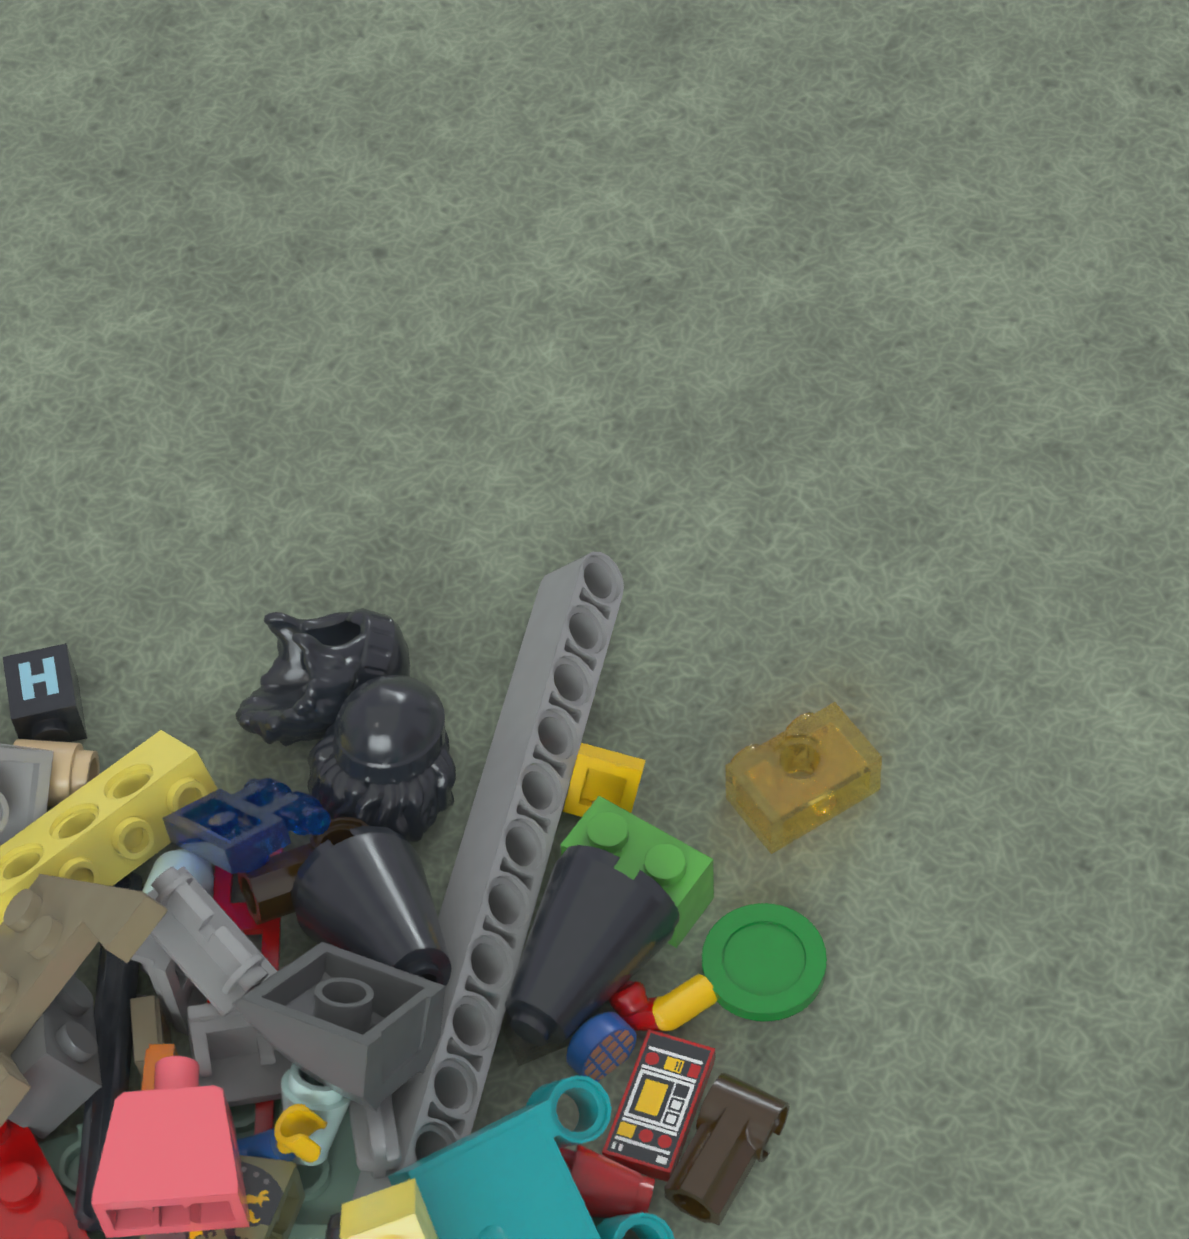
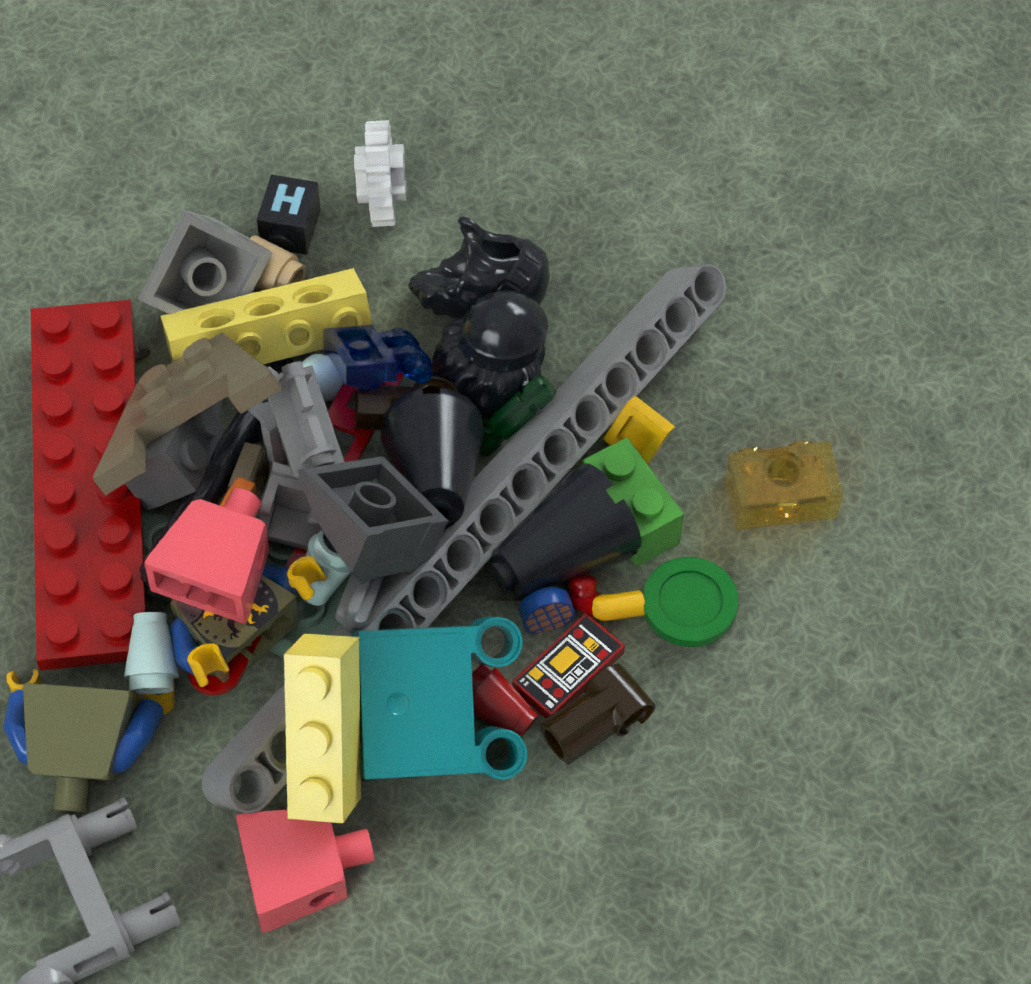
camera: 20 degrees right, 5 degrees up
(140, 602) = (380, 173): none -> white gear
(449, 820) = (516, 413): none -> dark green axle

